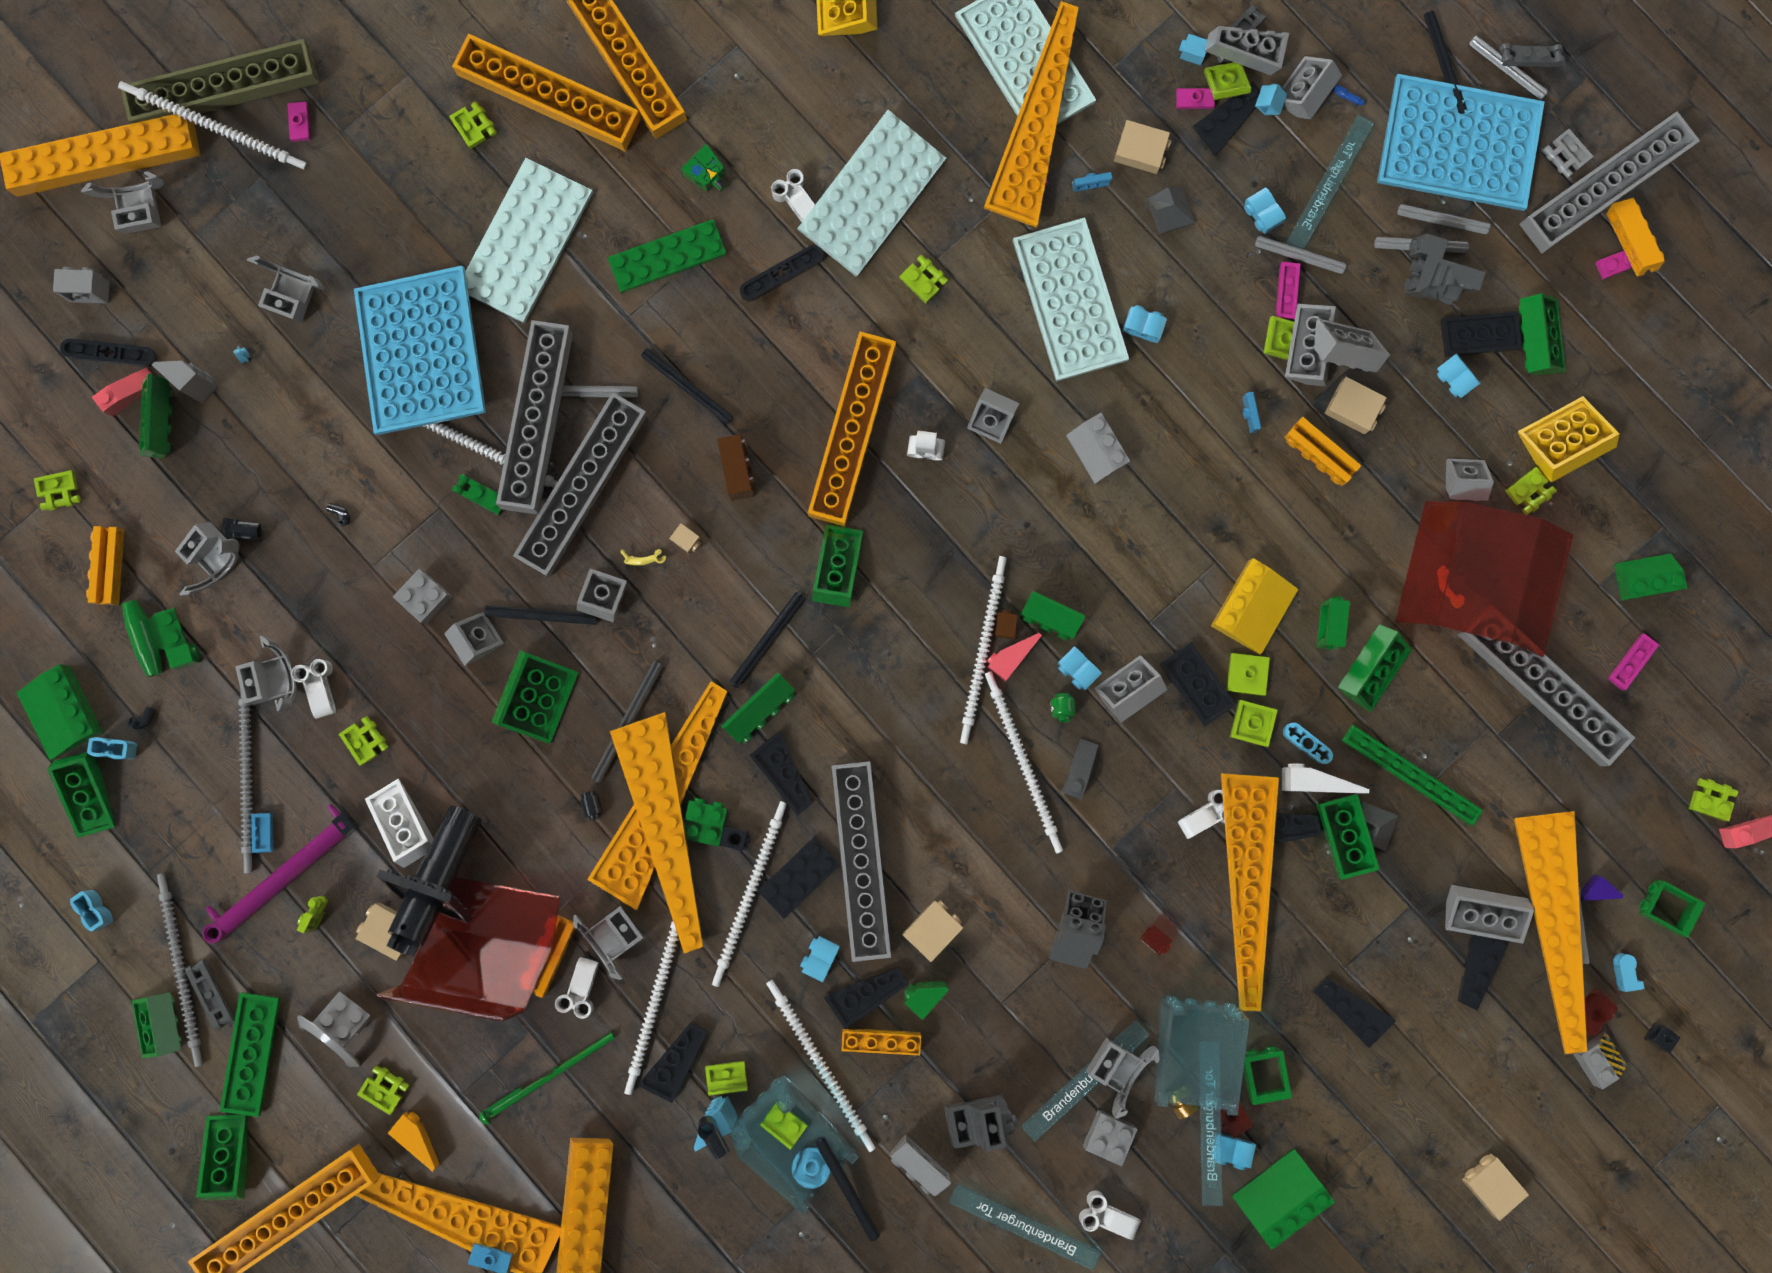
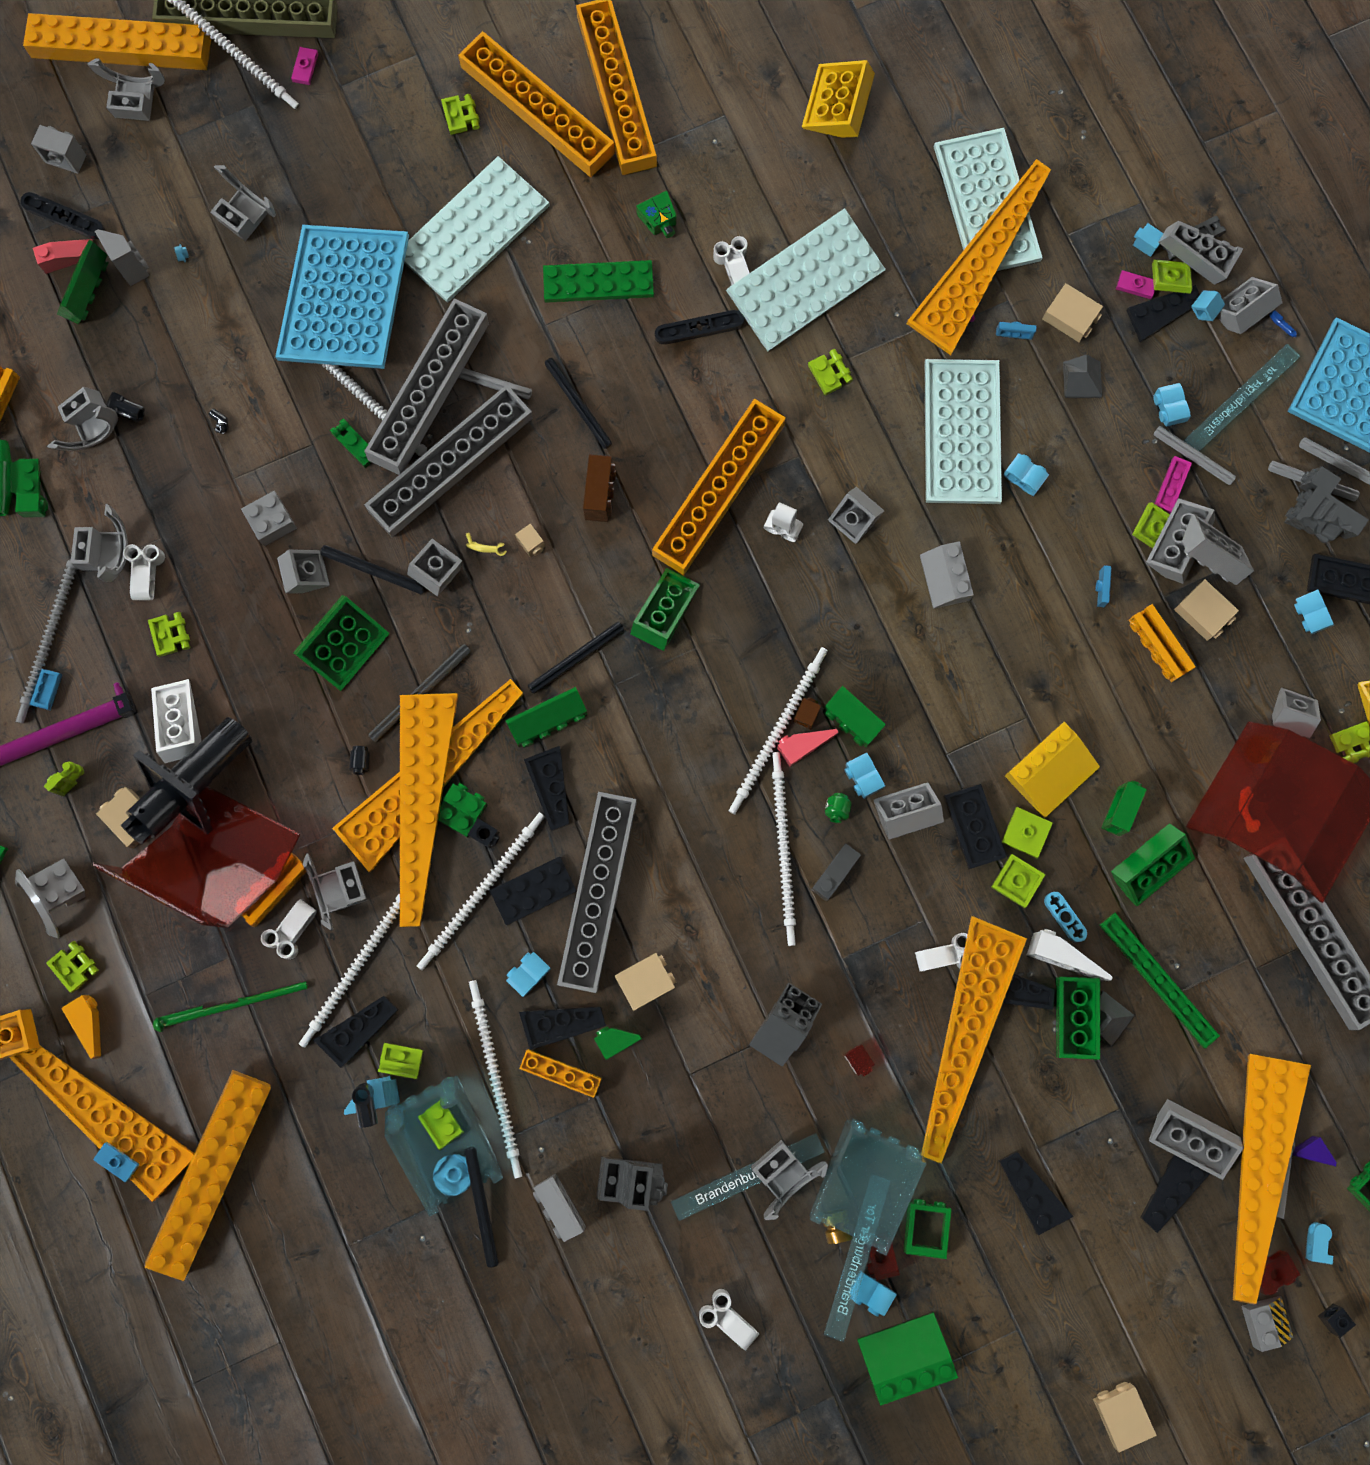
camera: 20 degrees right, 5 degrees down
(1024, 1226) = (643, 1303): clear light blue tile -> none
(1110, 1137) = (754, 1240): light grey brick -> none

